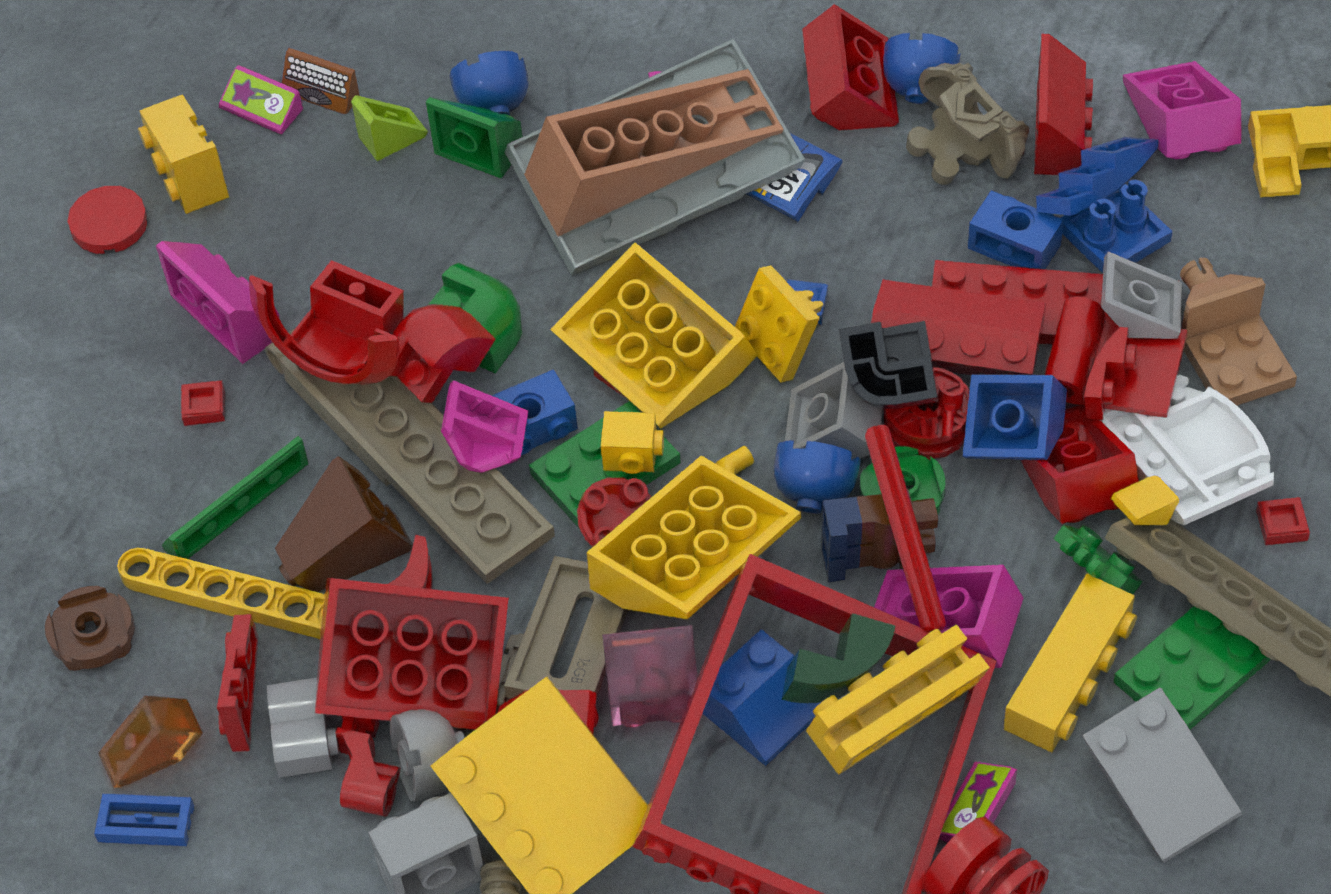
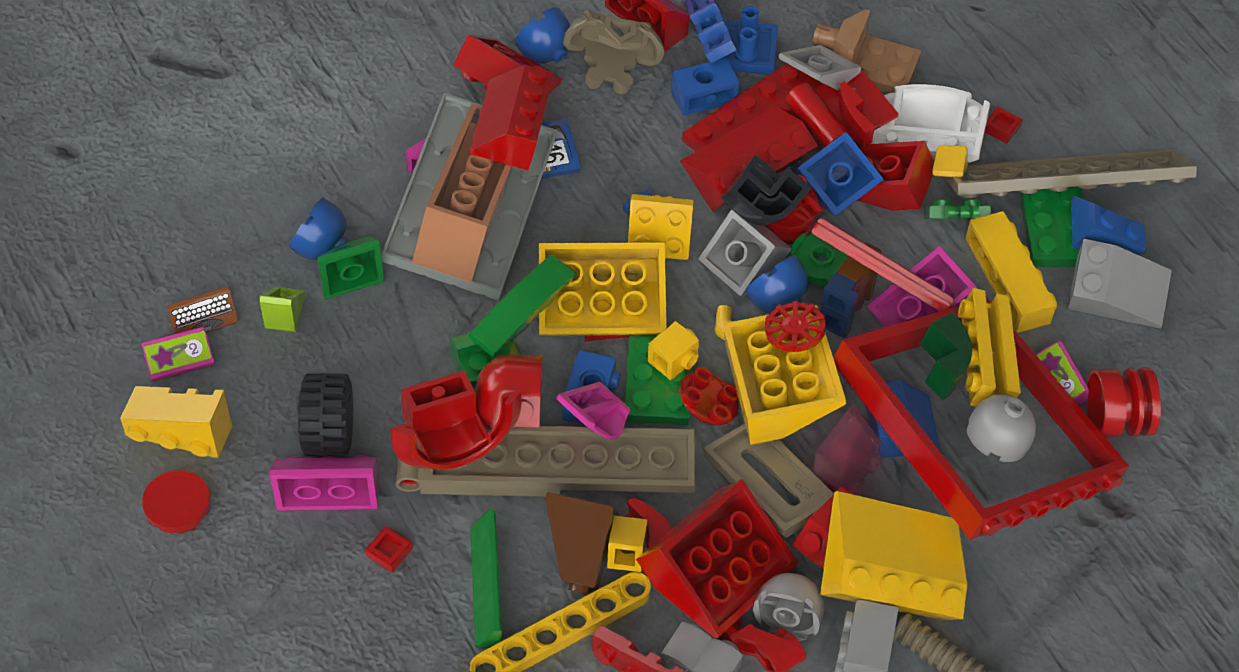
camera: 55 degrees left, 0 degrees up
(278, 238) = (325, 414): none -> black tyre
(370, 562) = (626, 543): none -> yellow brick
(542, 281) = (521, 305): none -> green slope
(744, 510) = (795, 326): none -> red wheel
(761, 111) = (512, 116): none -> red slope
(795, 776) = (1002, 427): none -> light grey cylinder
(1224, 708) = (1105, 226): none -> blue slope

